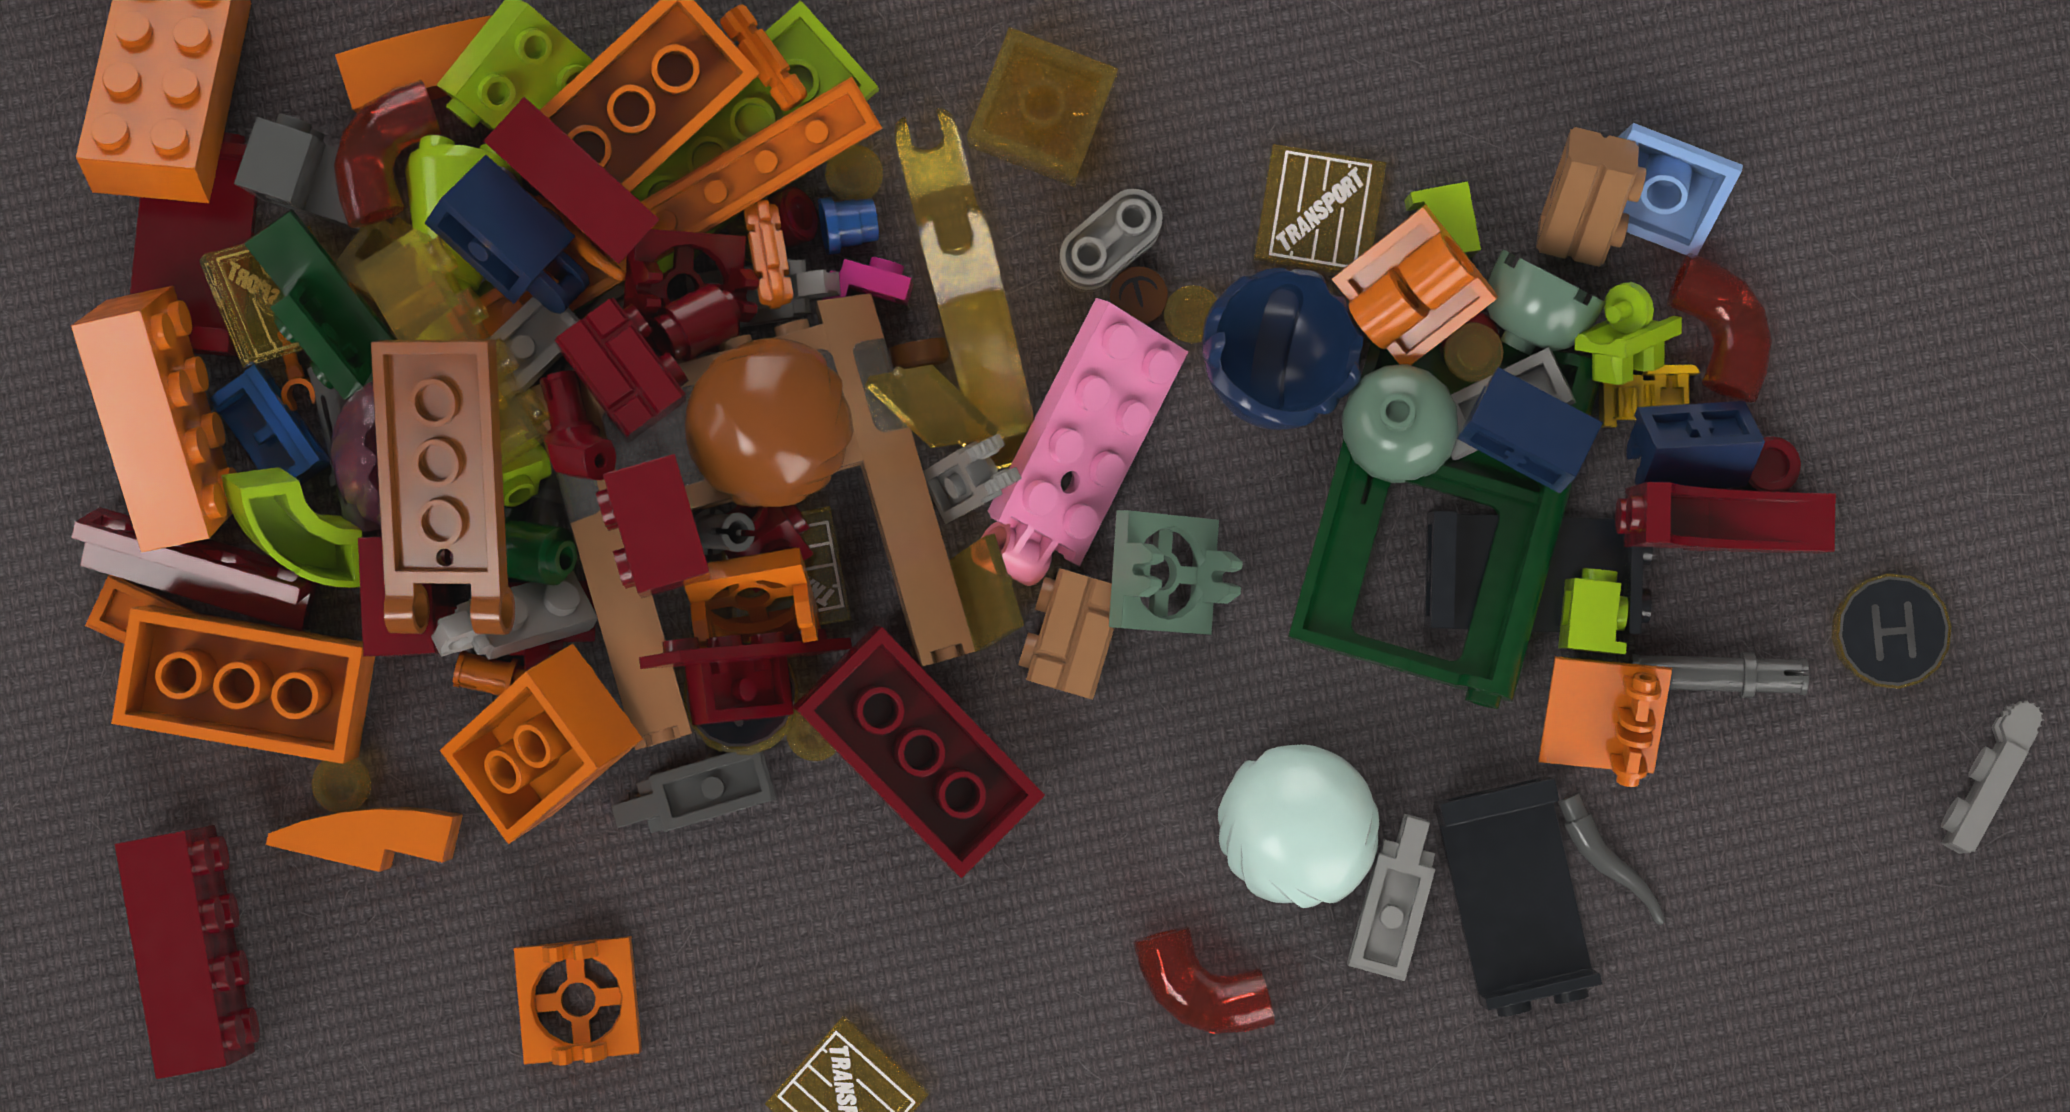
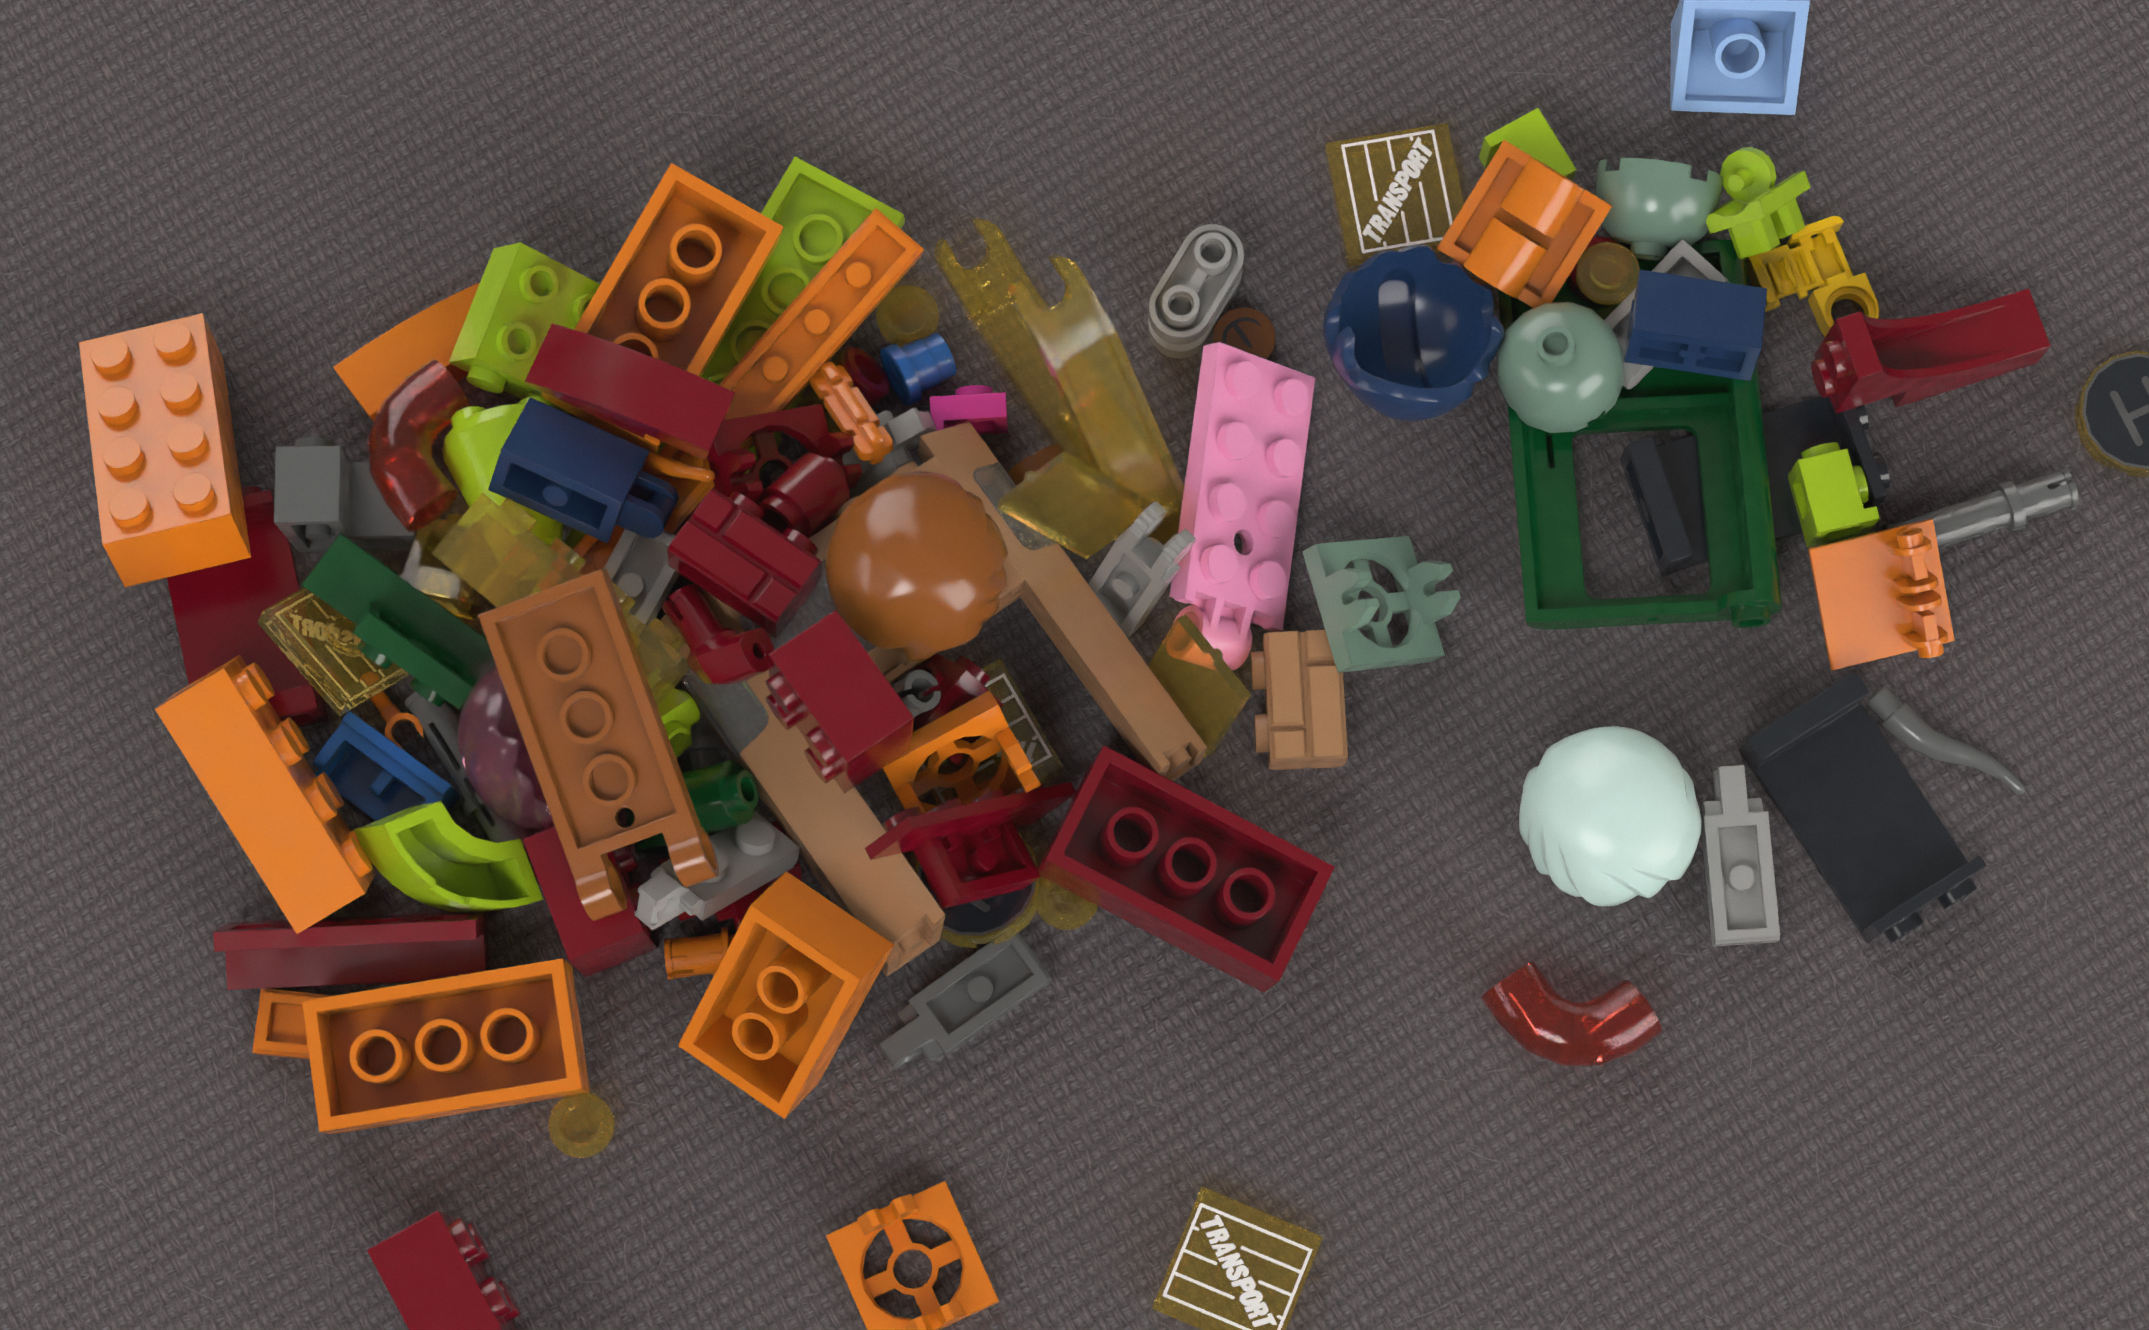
camera: 20 degrees left, 10 degrees down
(373, 836) = (632, 1165): orange slope -> none
(764, 56) = (812, 244): orange axle -> none
(1042, 107) = (1078, 181): clear yellow brick -> none
(1187, 312) = (1301, 340): clear yellow plate -> none
(1589, 197) = (1666, 81): medium nougat brick -> none
(1696, 444) = (1879, 279): dark blue hinge -> none
(1735, 323) = (1858, 158): clear red cylinder -> none
(1776, 466) = (1949, 286): dark red tile -> none

